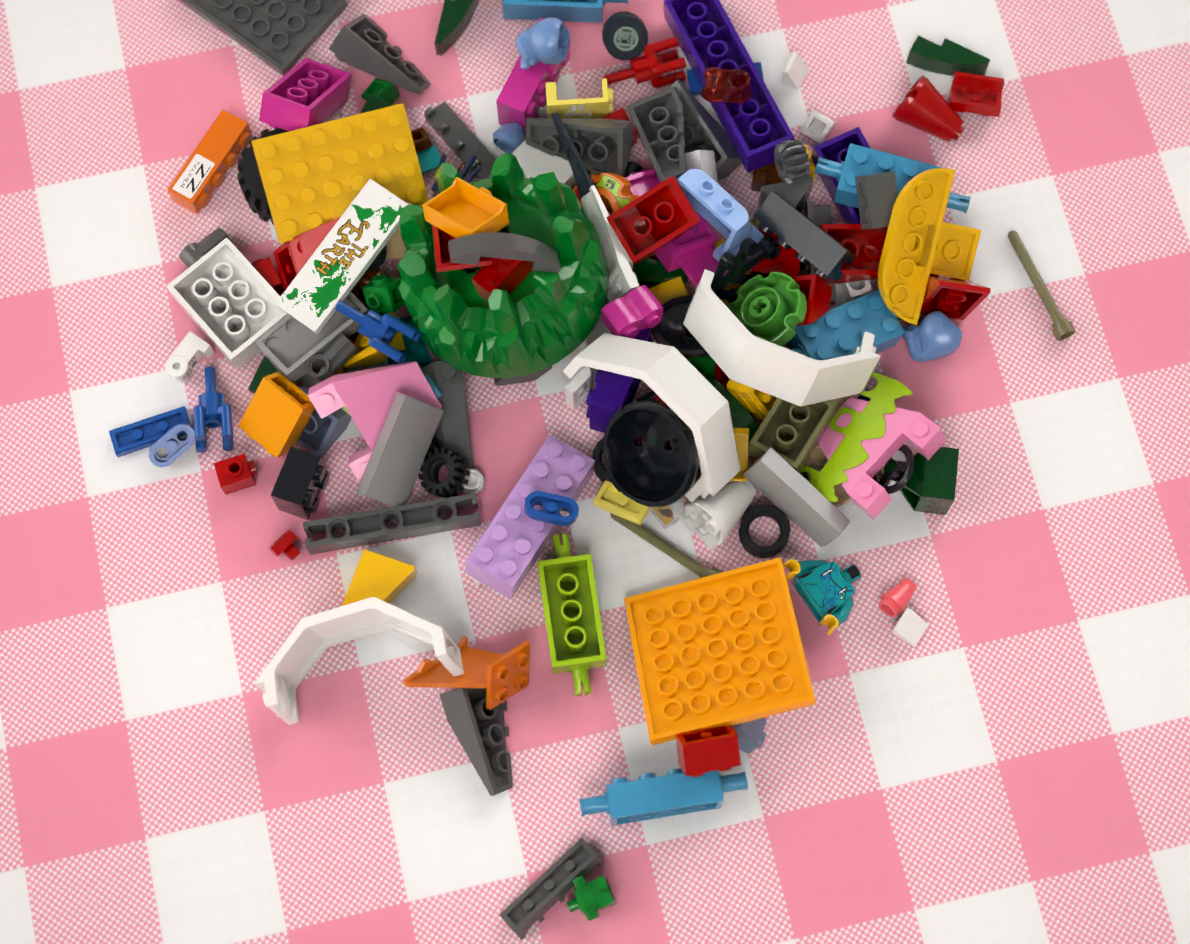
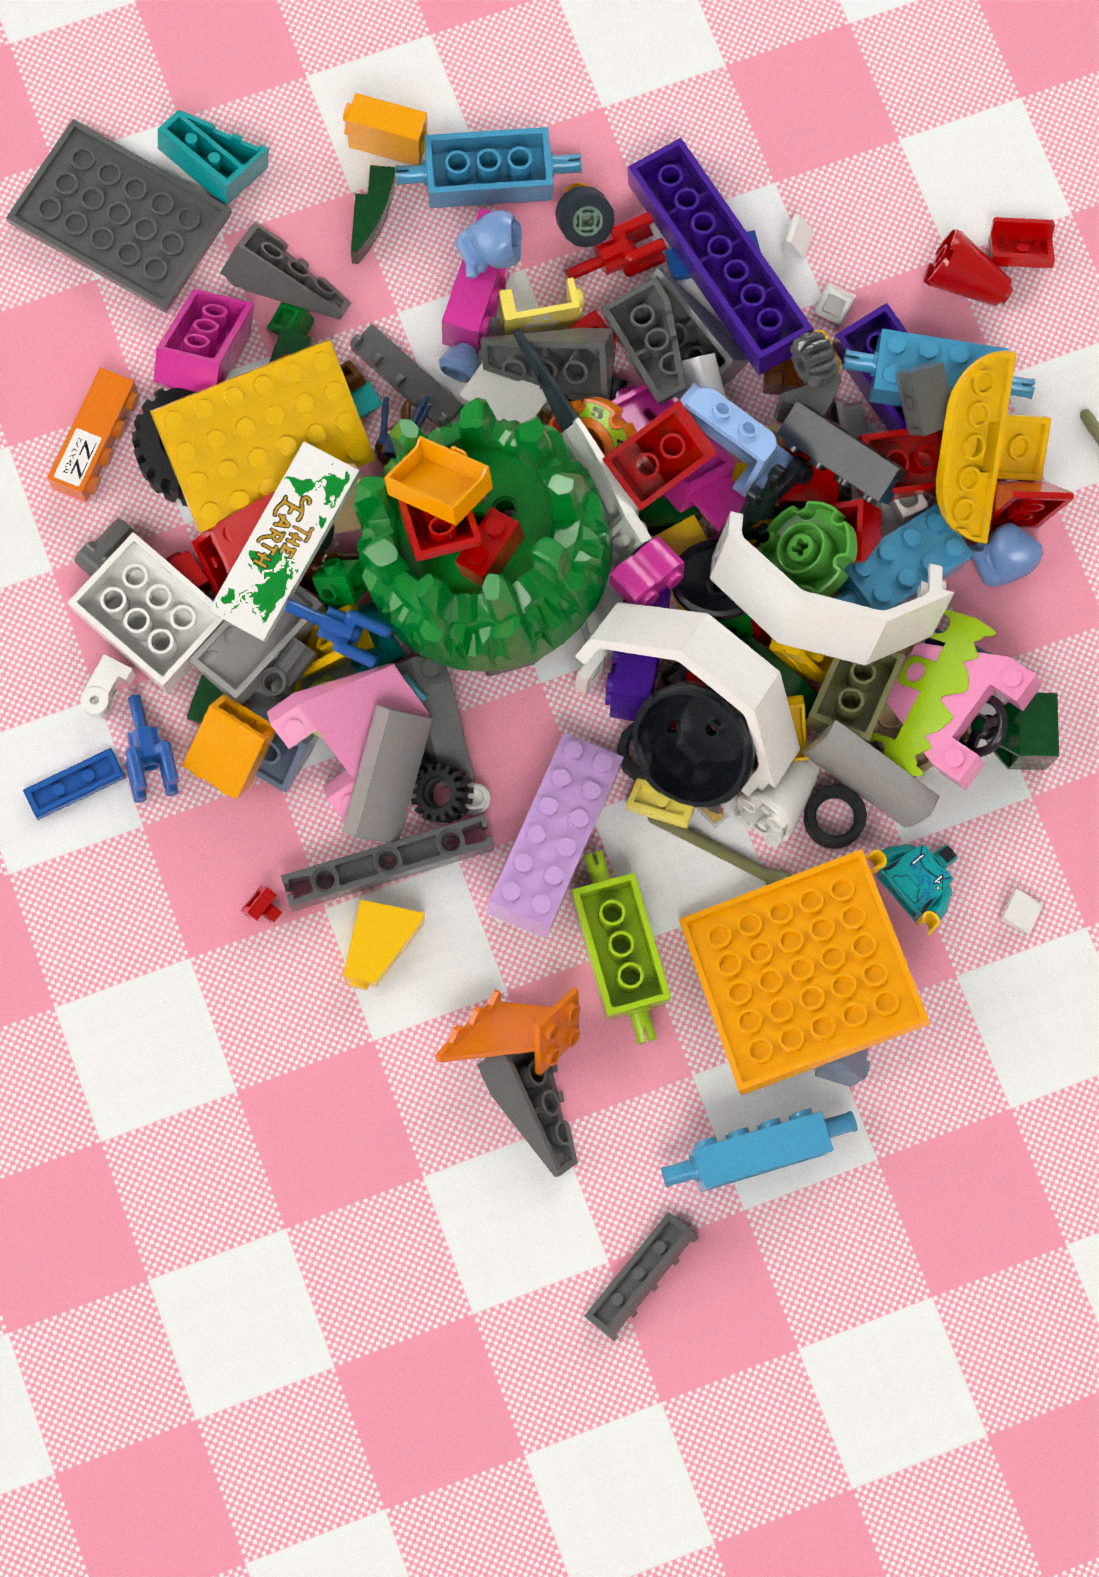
camera: 15 degrees left, 5 degrees up
(173, 444) = (106, 798): plate -> none
(235, 473) = (188, 824): red brick -> none
(300, 483) = (270, 828): black piece -> none
(335, 627) = (342, 998): white panel -> none
(505, 246) = (493, 520): dark grey slope -> none
(552, 506) = (582, 823): blue plate -> none
(591, 896) = (689, 1281): green piece -> none
(708, 750) = (809, 1094): red brick -> none
(725, 85) = (720, 271): clear red piece -> none
(897, 598) = (1002, 879): coral cone -> none
(946, 58) = (981, 201): dark green slope -> none

